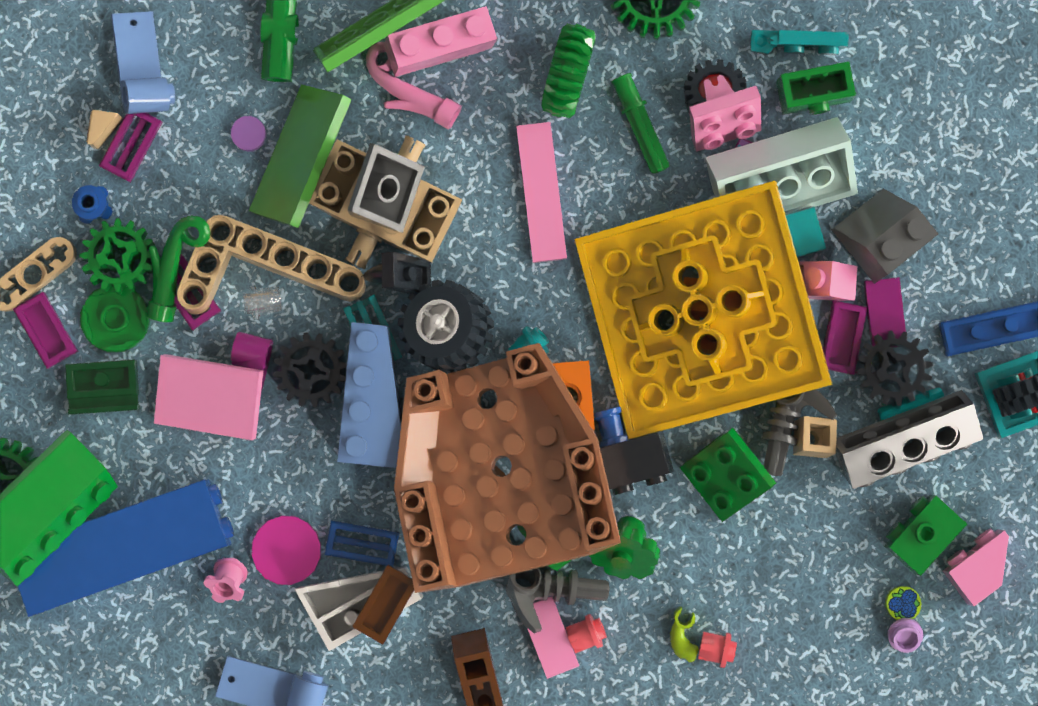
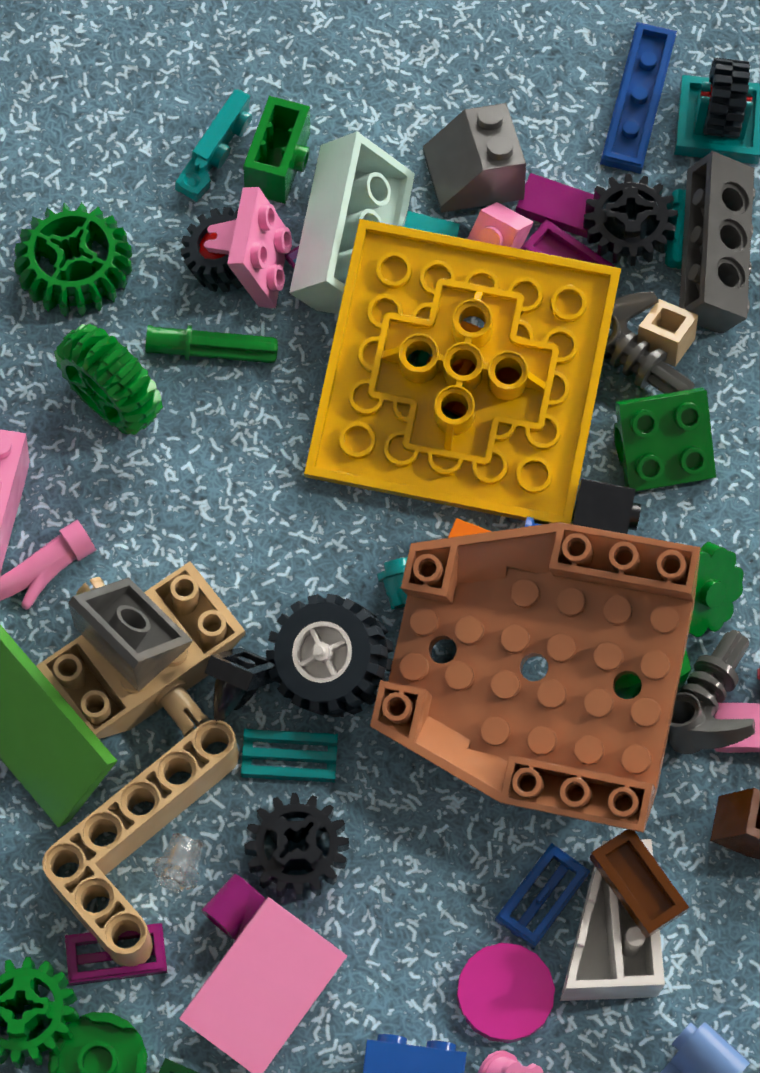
camera: 70 degrees left, 20 degrees down
(165, 269) = (75, 954): green plant -> none
(371, 400) = (375, 790): medium blue wedge -> none
(541, 192) = (229, 487): bright pink tile -> none

